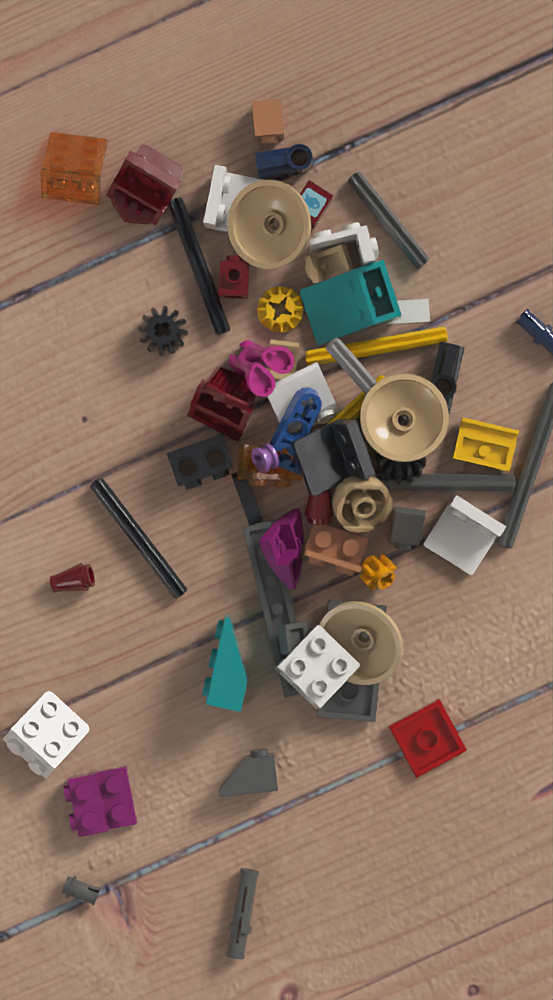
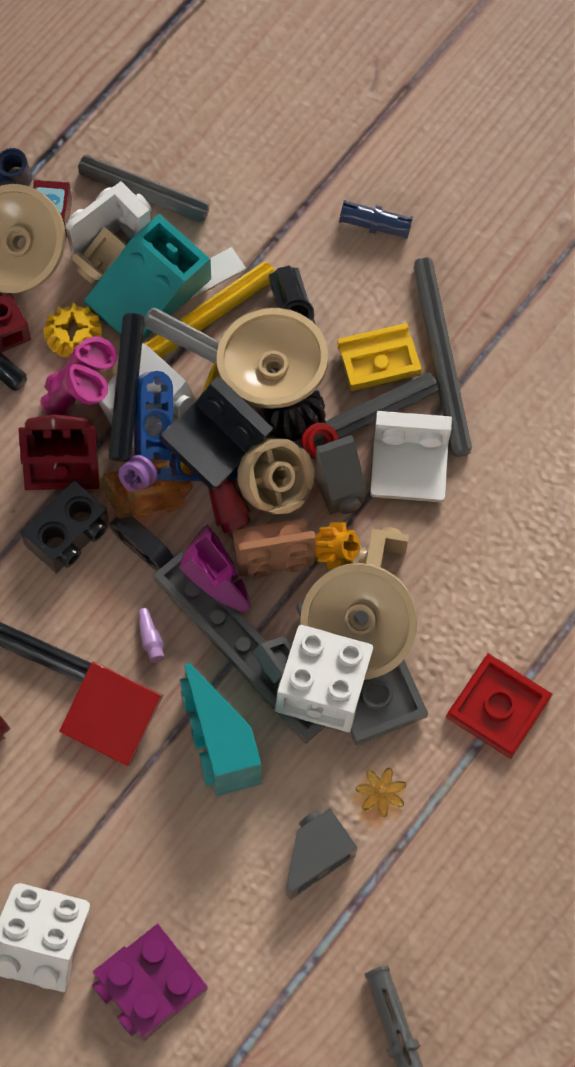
camera: 30 degrees left, 20 degrees down
(165, 611) = (111, 713): none -> red tile
(219, 570) = (150, 637): none -> lavender piece
(288, 393) = (126, 387): none -> black axle
(317, 748) = (381, 798): none -> clear yellow plant
(398, 592) = (384, 539): none -> tan bracket
(409, 500) = (323, 429): none -> red plate

